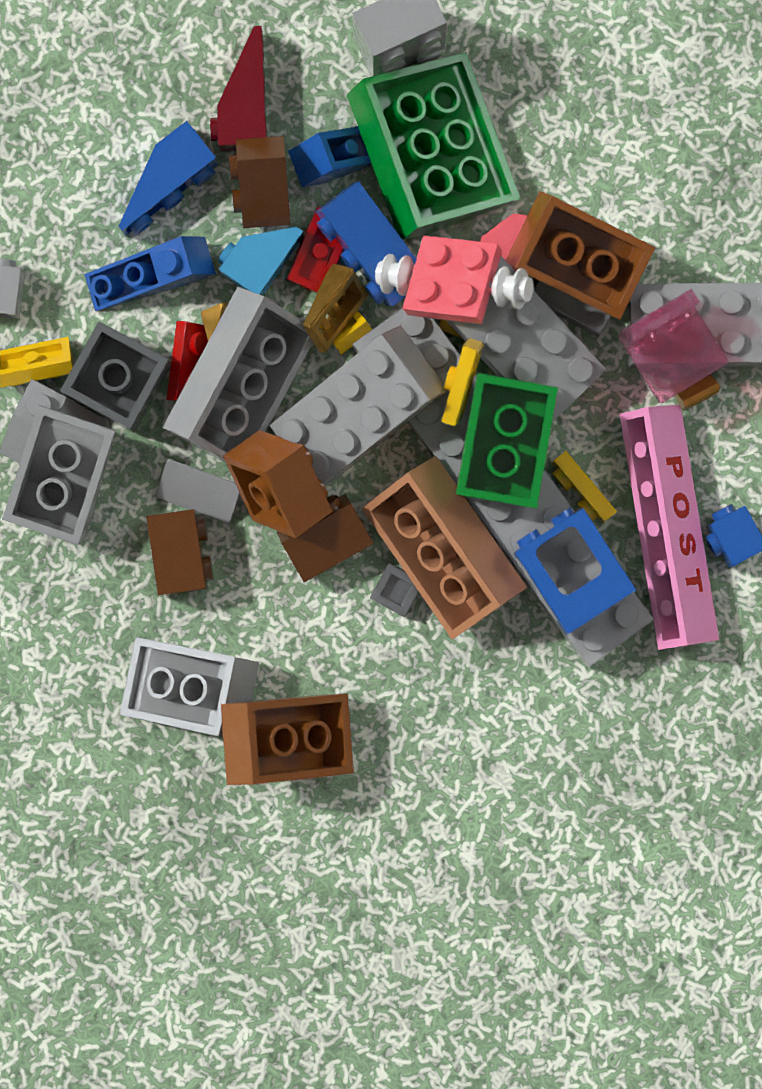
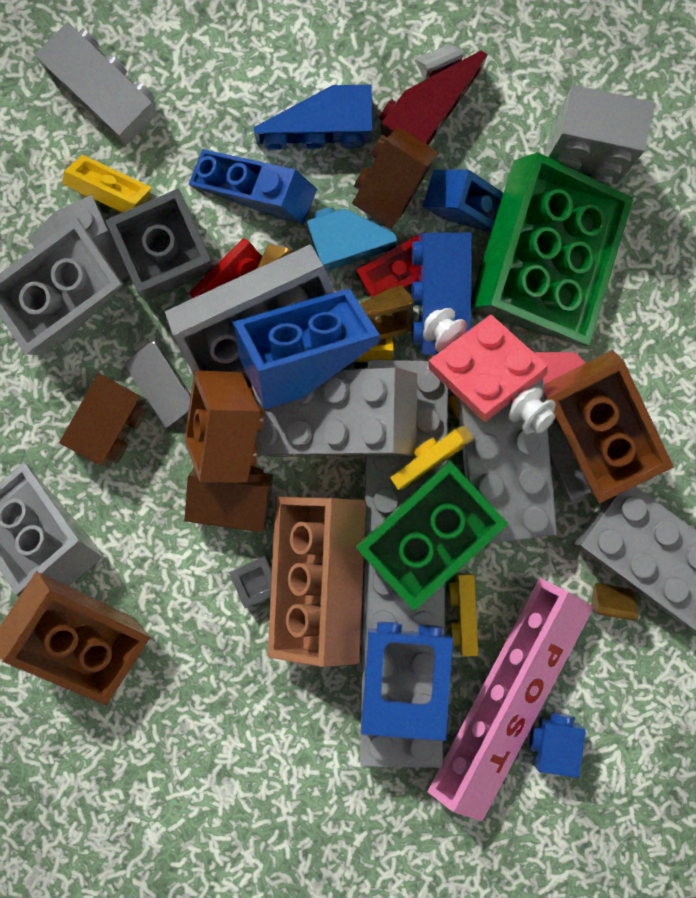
camera: 30 degrees right, 0 degrees up
(223, 57) = (438, 60): none -> light grey slope
(295, 370) = (302, 345): none -> blue slope
(673, 347) = (626, 560): clear pink bracket -> none

